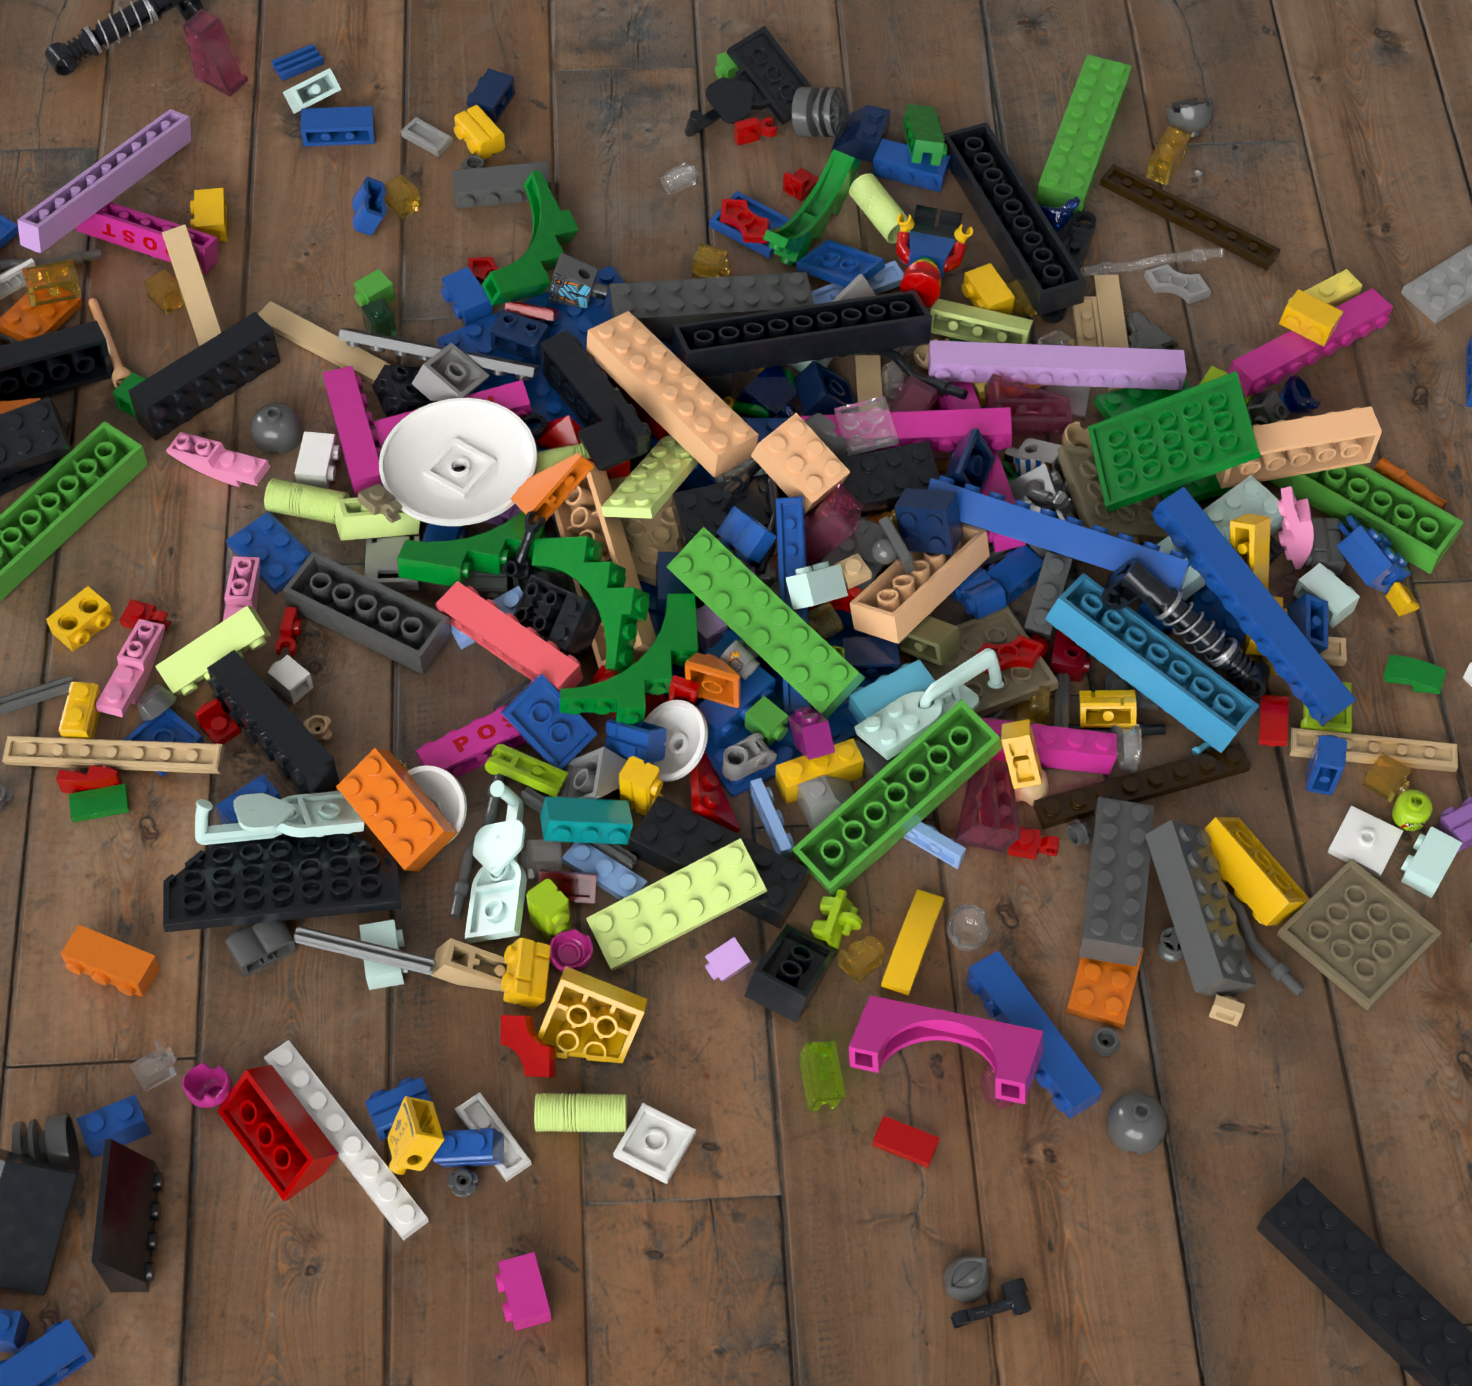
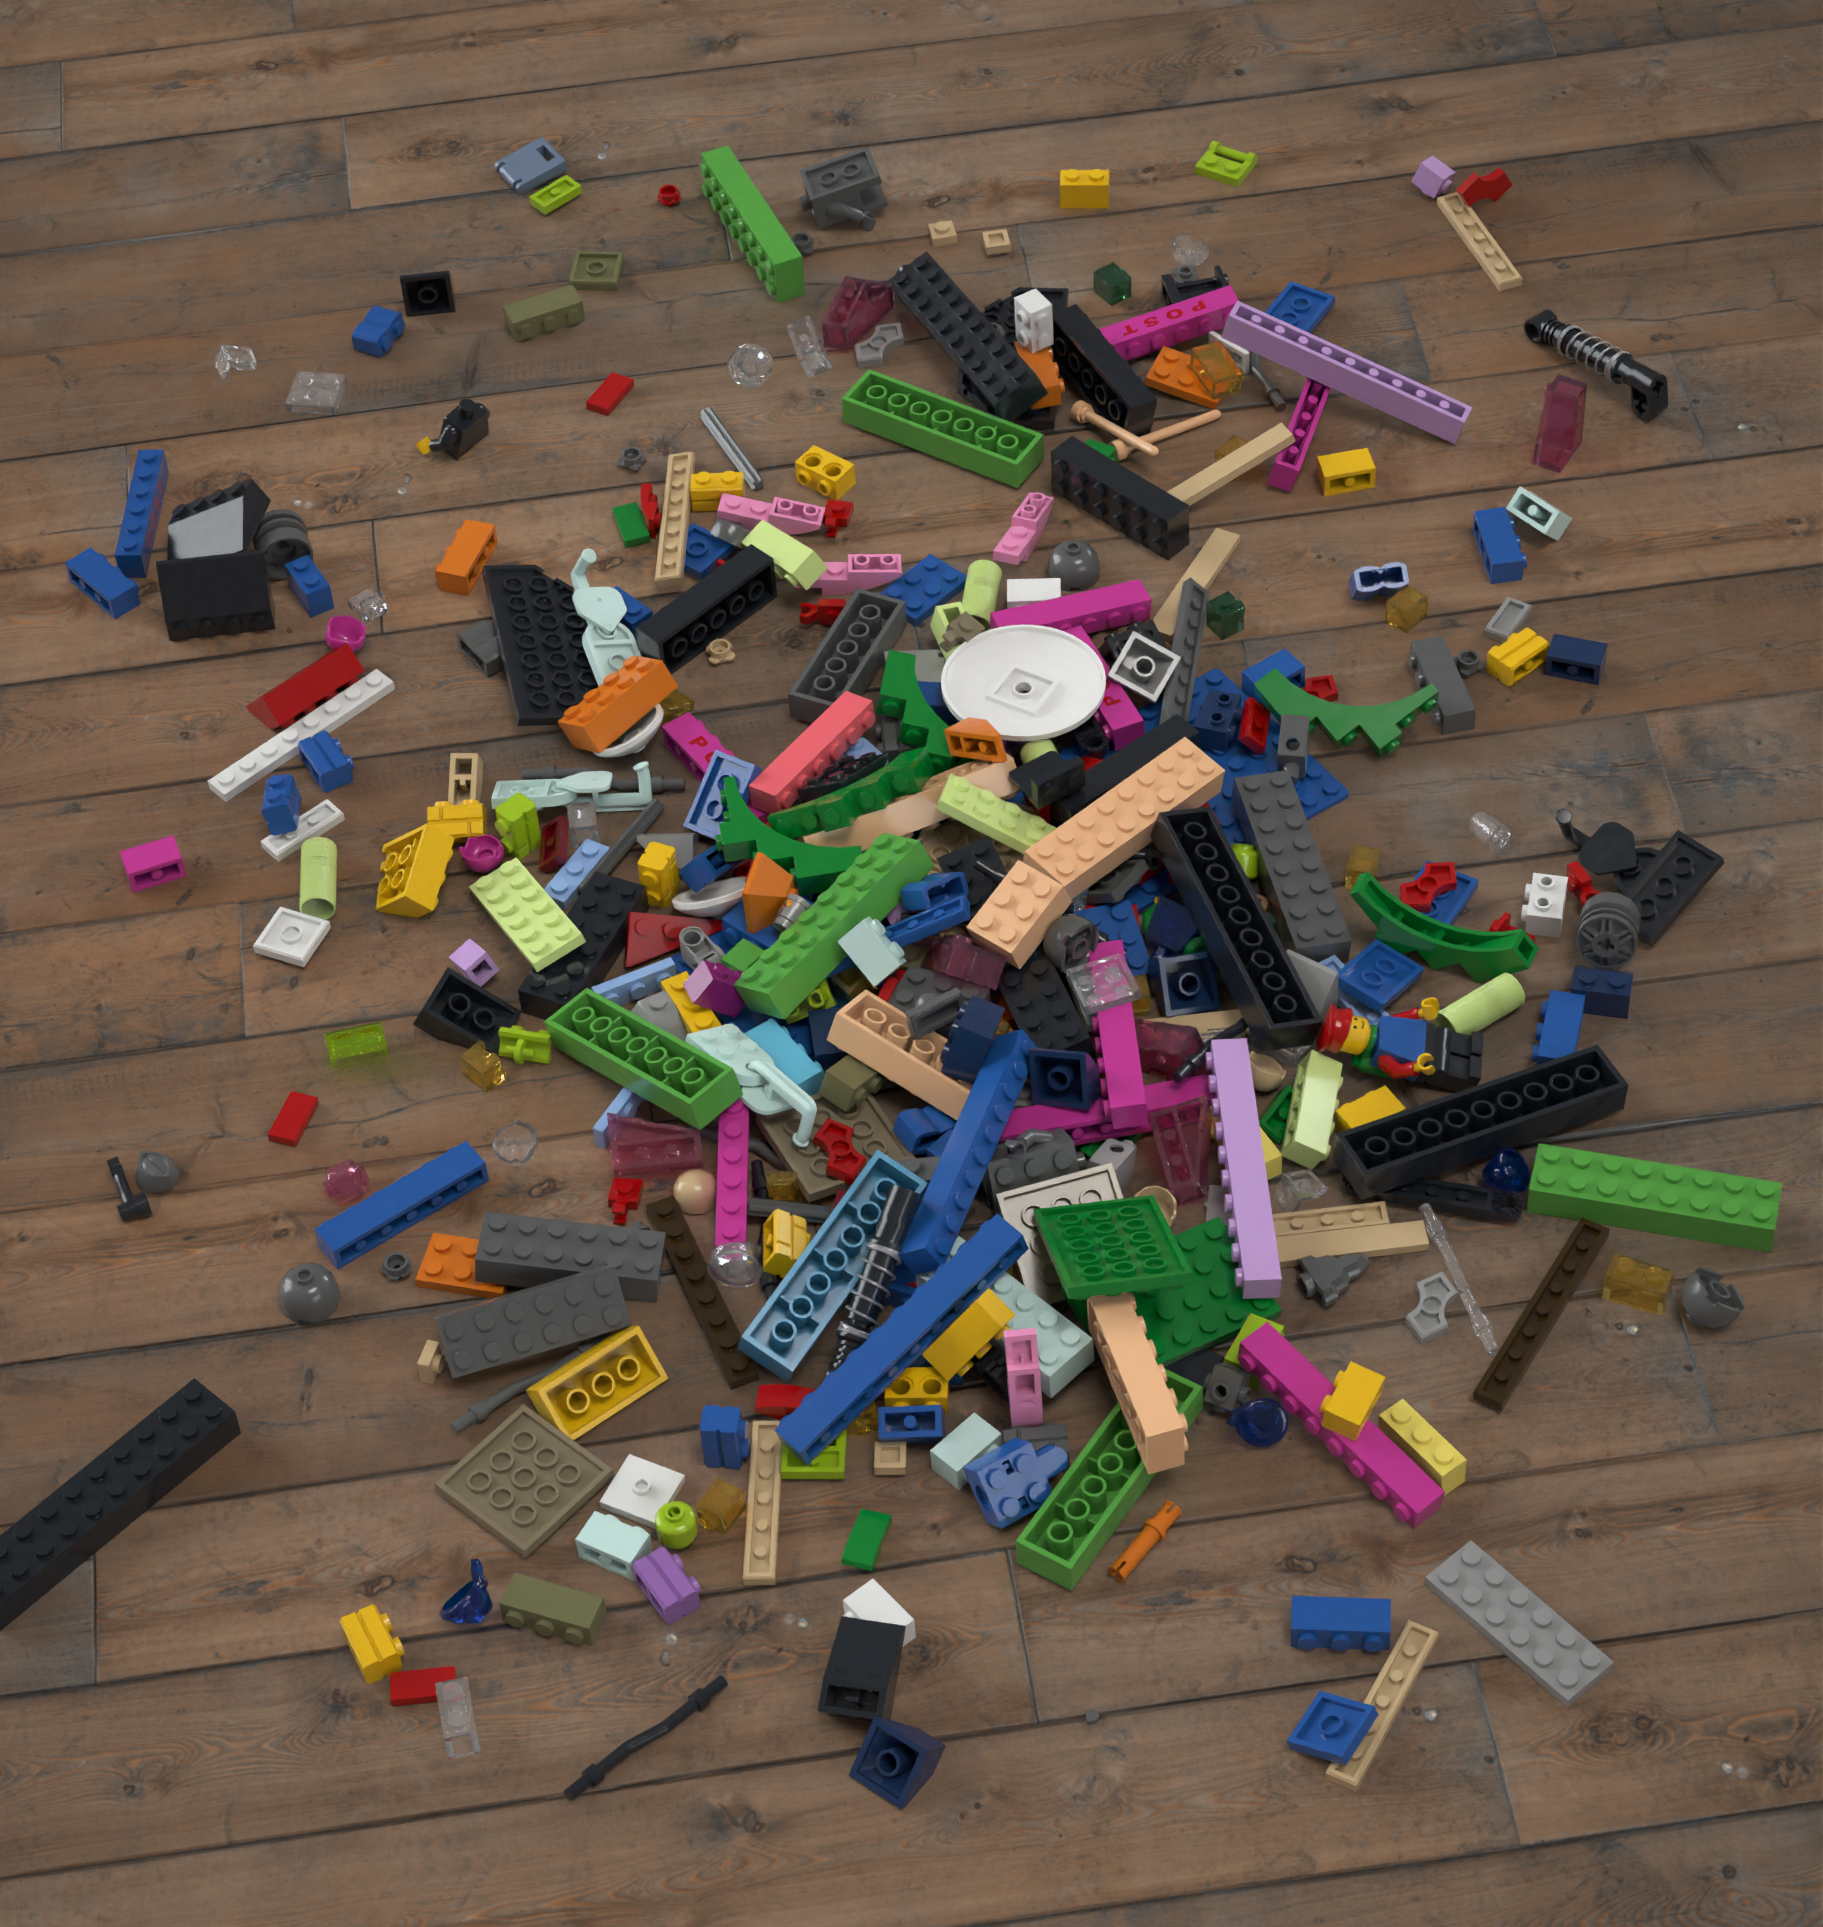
camera: 90 degrees right, 10 degrees down
(63, 398) = (1084, 413): none -> light nougat piece
(290, 679) = (770, 621): white brick -> none
(297, 62) = (1596, 502): blue tile -> none
(364, 950) = (469, 703): axle -> none
(373, 288) = (1266, 608): bright green brick -> none
(387, 935) = (477, 727): light aqua brick -> none
(414, 1136) = (287, 758): yellow torso -> none
(466, 1189) = (254, 816): dark grey plate -> none
(519, 1035) = (386, 835): red tile -> none
(522, 566) = (930, 737): black brick -> none
(526, 770) = (674, 796): lime plate -> none
(586, 820) = (615, 837): teal brick -> none
(770, 154) = (1545, 905): none -> white brick
(854, 571) = (904, 986): tan plate -> none
(894, 1024) = (364, 1164): dark pink arch -> none
(912, 942) = (500, 1102): yellow slope -> none
(924, 134) = (1592, 1024): green brick -> none
(1021, 754) = (692, 1147): yellow brick -> none
(1402, 599) = (975, 1532): yellow slope -> none

